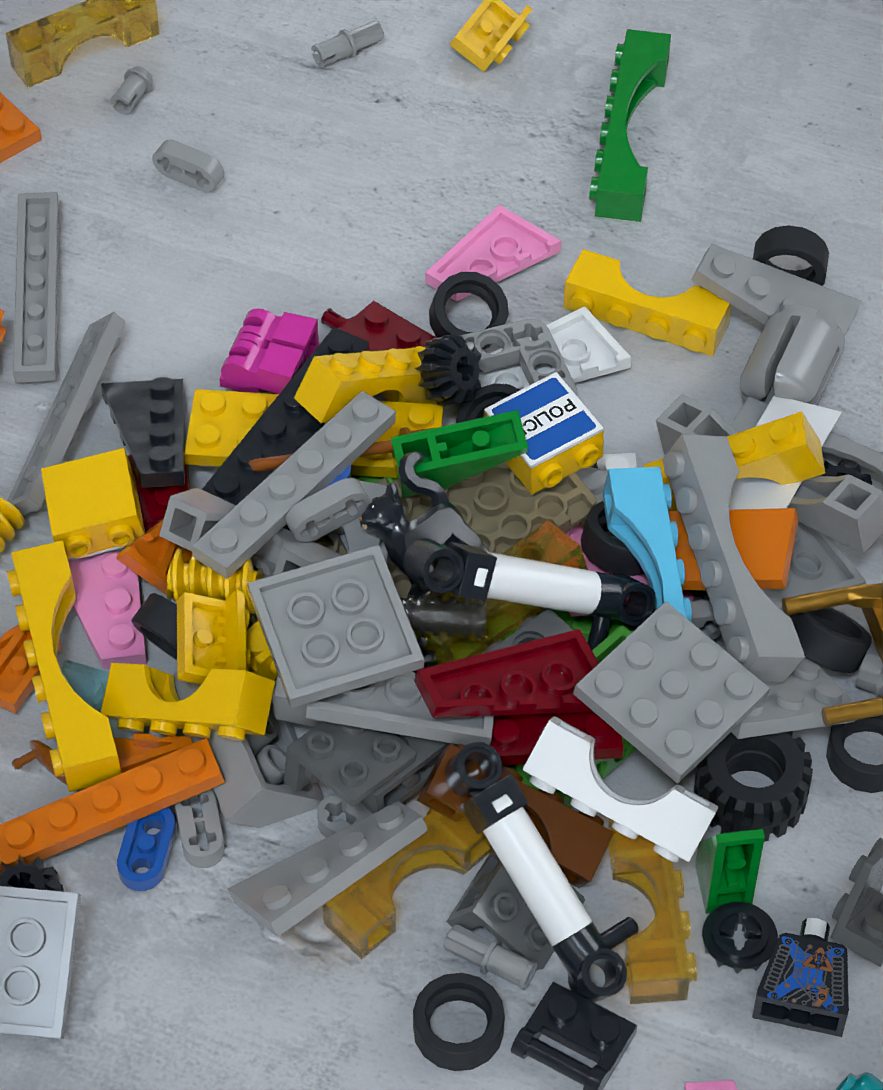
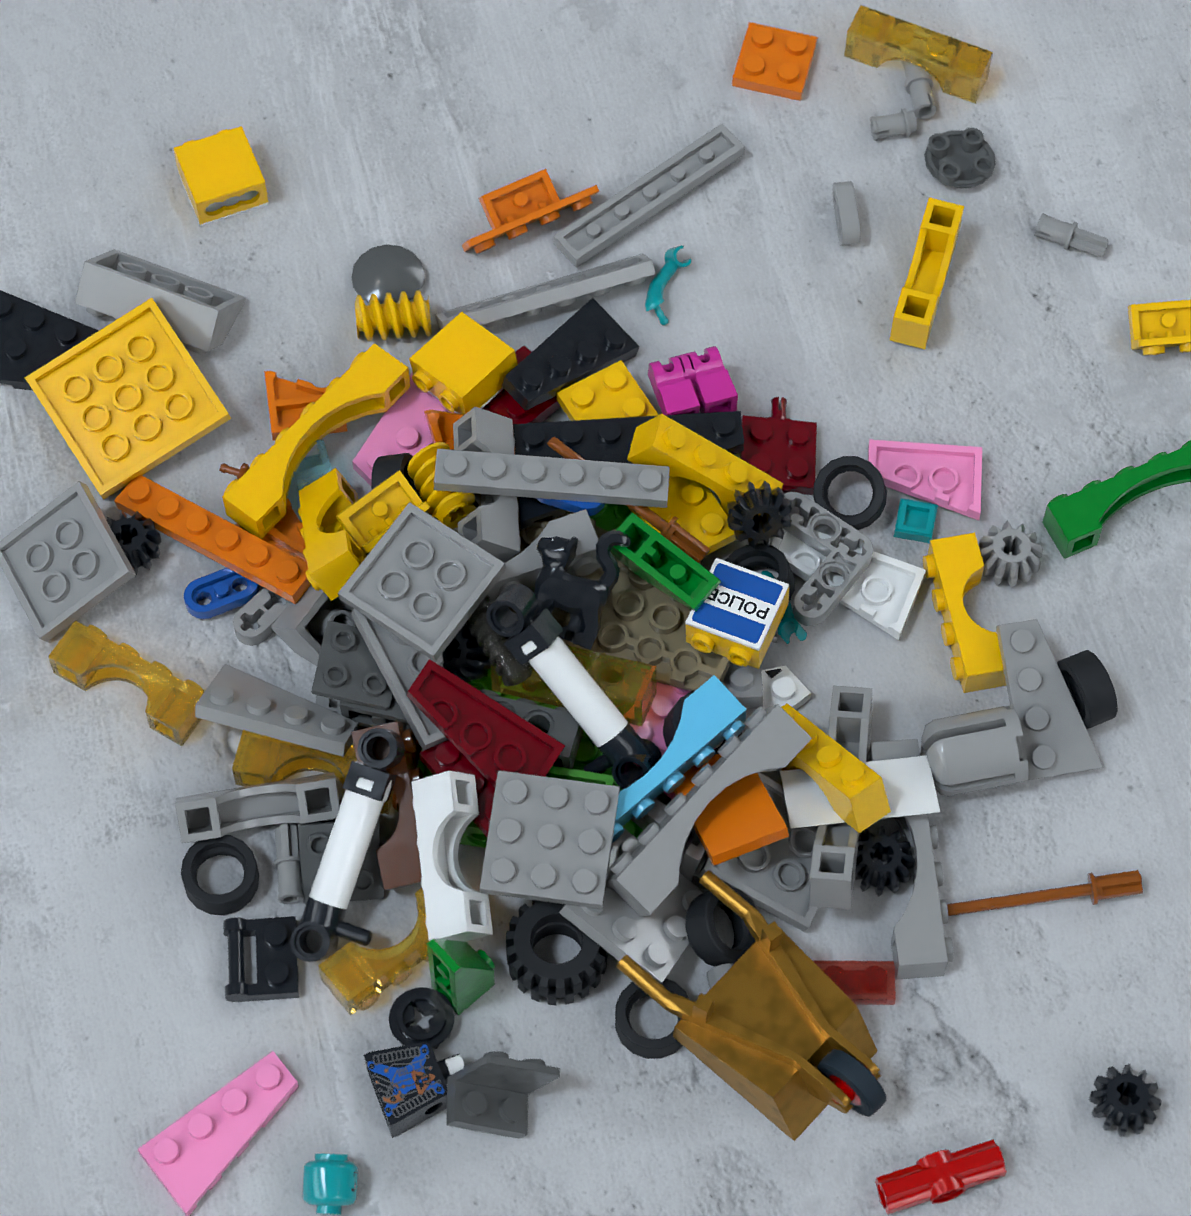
camera: 55 degrees right, 10 degrees up
(112, 53) = (919, 86): none -> light grey pin
(142, 340) = (659, 282): none -> teal piece
(207, 67) = (960, 158): none -> dark grey dish
(231, 958) = (90, 658): none -> clear yellow arch
(274, 119) = (927, 273): none -> yellow arch
(327, 510) = (537, 513): light grey beam -> none
(396, 977) = (257, 805): none -> light grey arch
(526, 292) = (915, 520): none -> teal tile
(618, 240) = (1013, 542): none -> light grey gear

